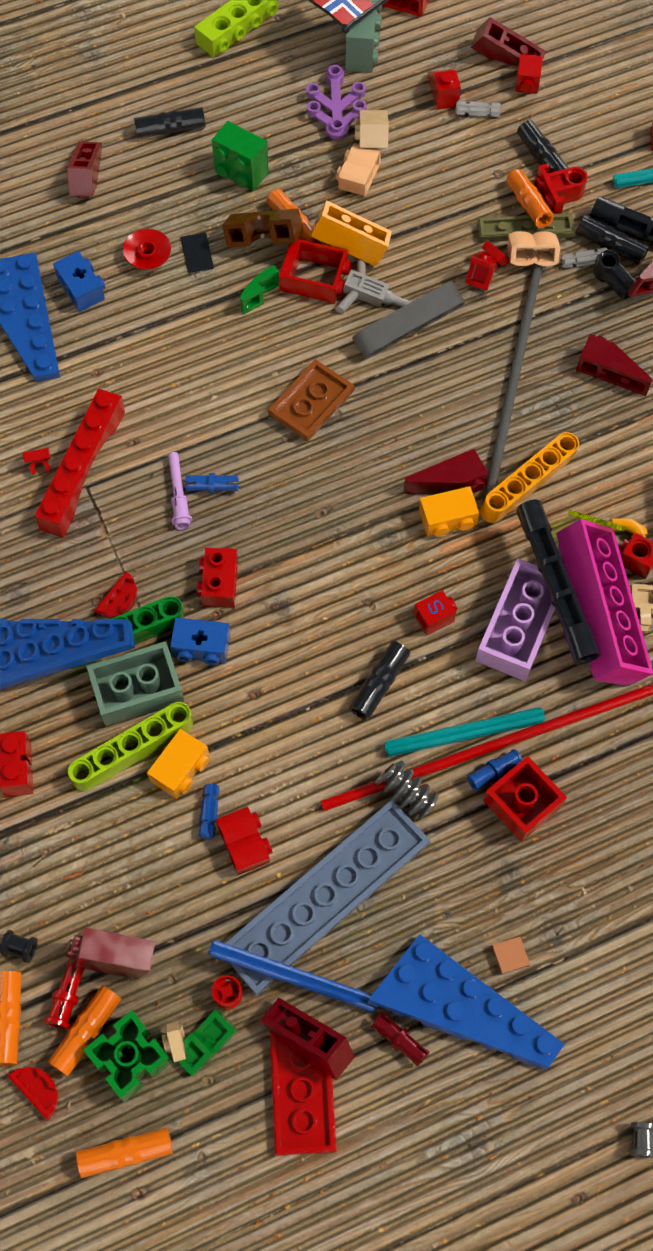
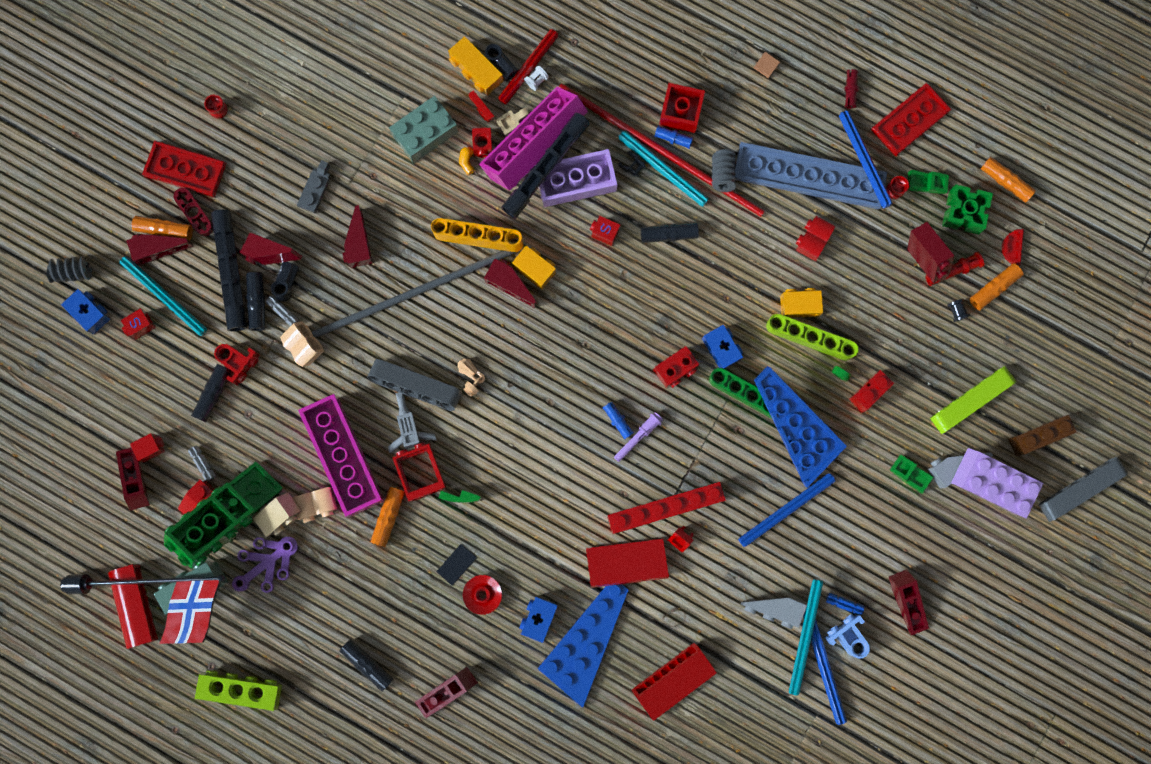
camera: 130 degrees left, 15 degrees up
(60, 392) = (627, 563): none -> red tile
(63, 748) = (841, 373): none -> green tile
(84, 1030) = (973, 242): orange axle -> none
(119, 599) = (730, 417): red tile -> none
(135, 683) = (780, 356): sand green brick -> none
(173, 1041) = (945, 190): tan plate -> none
(209, 810) = (812, 269): blue axle -> none
(240, 155) = (366, 587): green brick -> none
(279, 225) = (420, 539): reddish brown arch -> none
(309, 1038) = (890, 129): dark red slope -> none
(311, 400) = (516, 404): dark orange plate -> none
(351, 232) = (378, 464): light orange brick -> none
(387, 380) = (466, 367): none -> light nougat piece
(409, 78) = (220, 516): none -> green wedge
(412, 215) = (341, 455): none -> dark pink brick
(454, 1001) = (813, 79): blue wing -> none
(481, 270) = (343, 365): red bracket -> none
(496, 253) = (322, 366): red tile -> none
(496, 708) = (629, 168): none -> black piece
(498, 228) = (282, 364): olive tile -> none
(529, 198) = (261, 373): orange axle -> none
(596, 520) = (481, 176): clear neon green piece -> none

